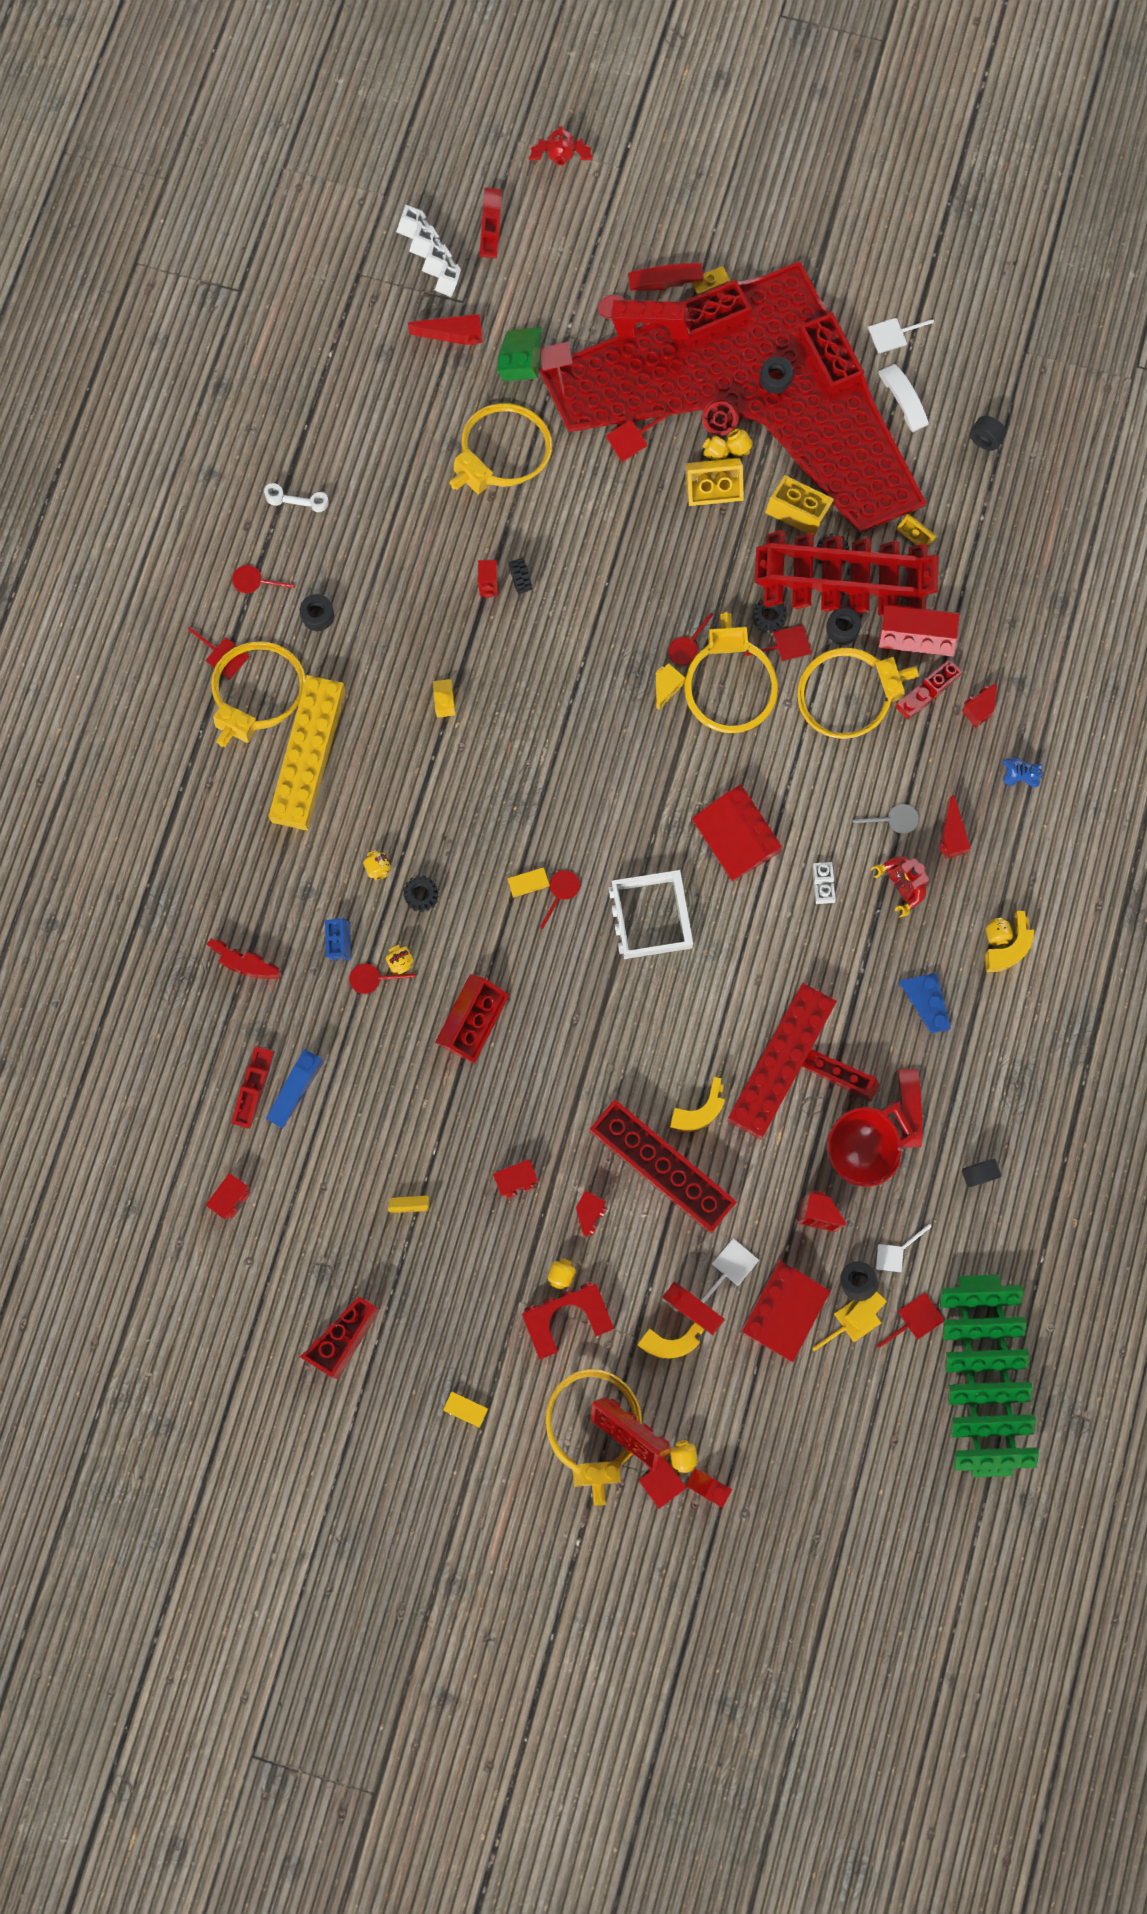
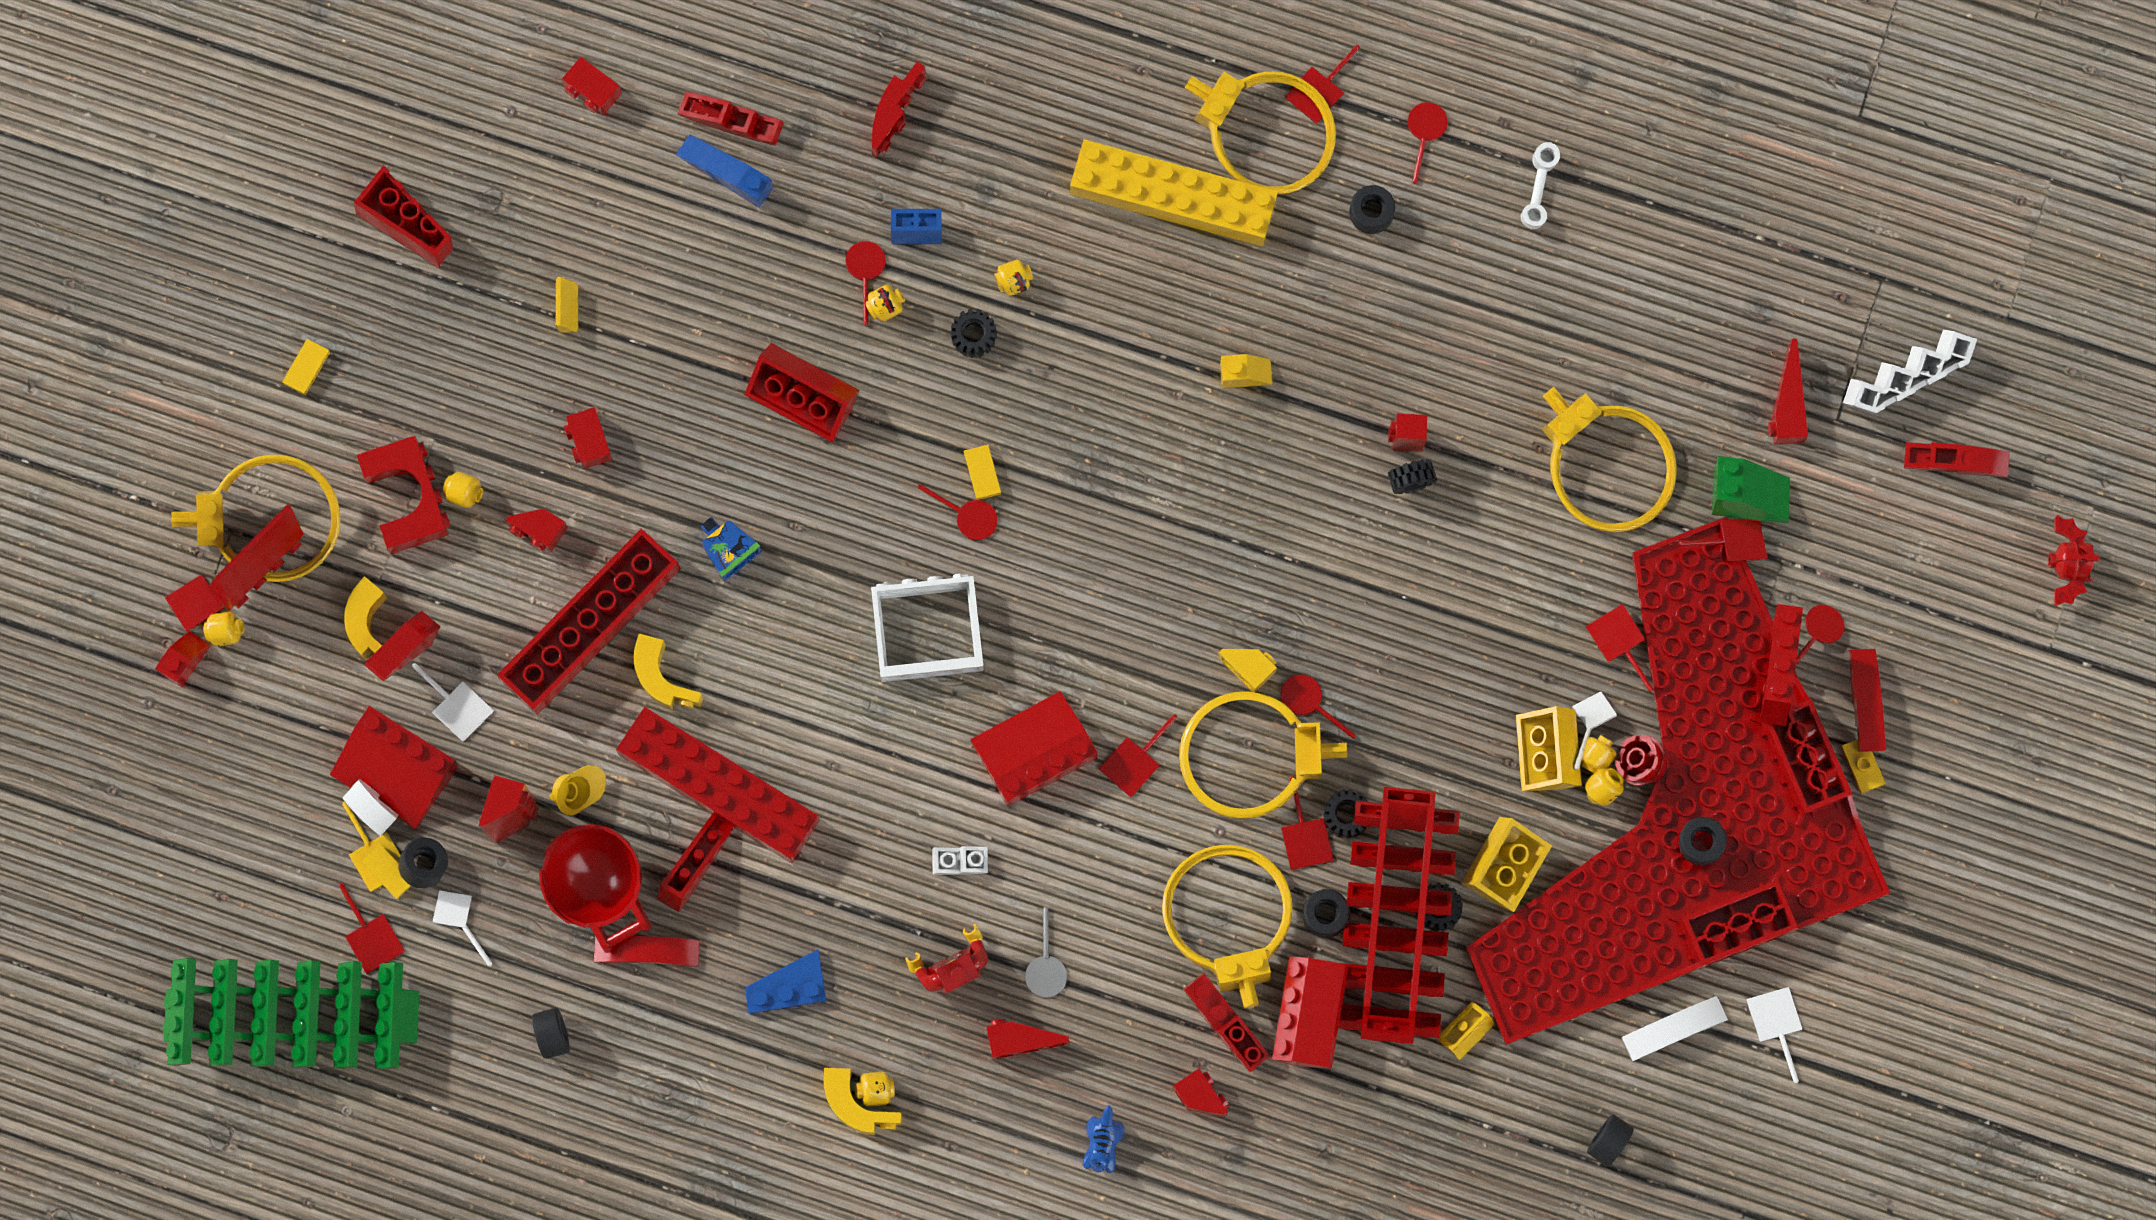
camera: 90 degrees right, 0 degrees up
(597, 1066) = (728, 547): none -> blue torso
(685, 453) = (1592, 713): none -> white piece
(743, 766) = (1130, 765): none -> red piece
(794, 1168) = (579, 789): none -> yellow piece
(818, 1327) = (369, 808): none -> white slope

